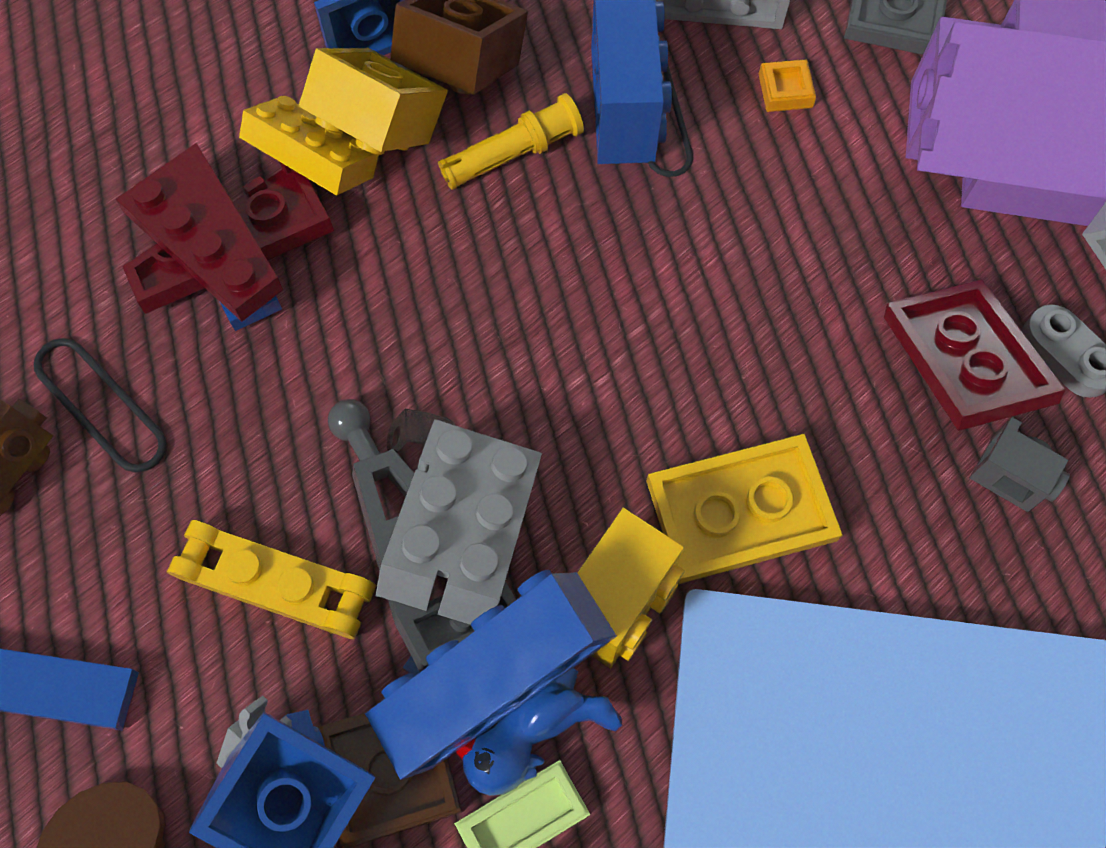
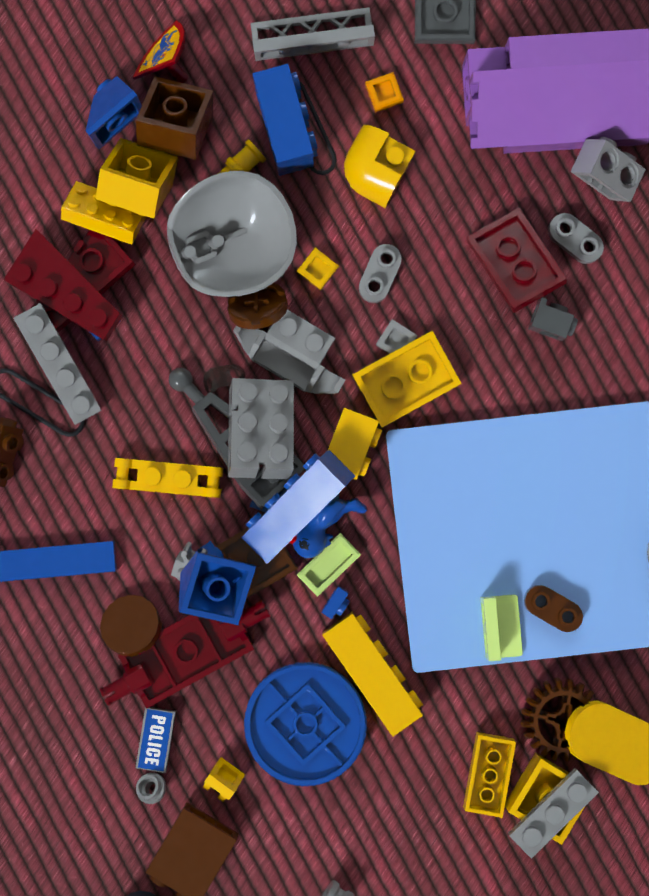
camera: 15 degrees left, 20 degrees up
(150, 342) = (57, 363): none -> light grey plate
(500, 201) = (232, 234): none -> light grey piece
(511, 328) = (258, 308): none -> reddish brown tile
(554, 409) = (293, 353): none -> light grey plate
(627, 303) = (318, 269): none -> yellow tile
(730, 328) = (380, 273): none -> light grey plate
(733, 433) = (395, 337): none -> light grey tile
(757, 172) = (376, 164): none -> yellow brick

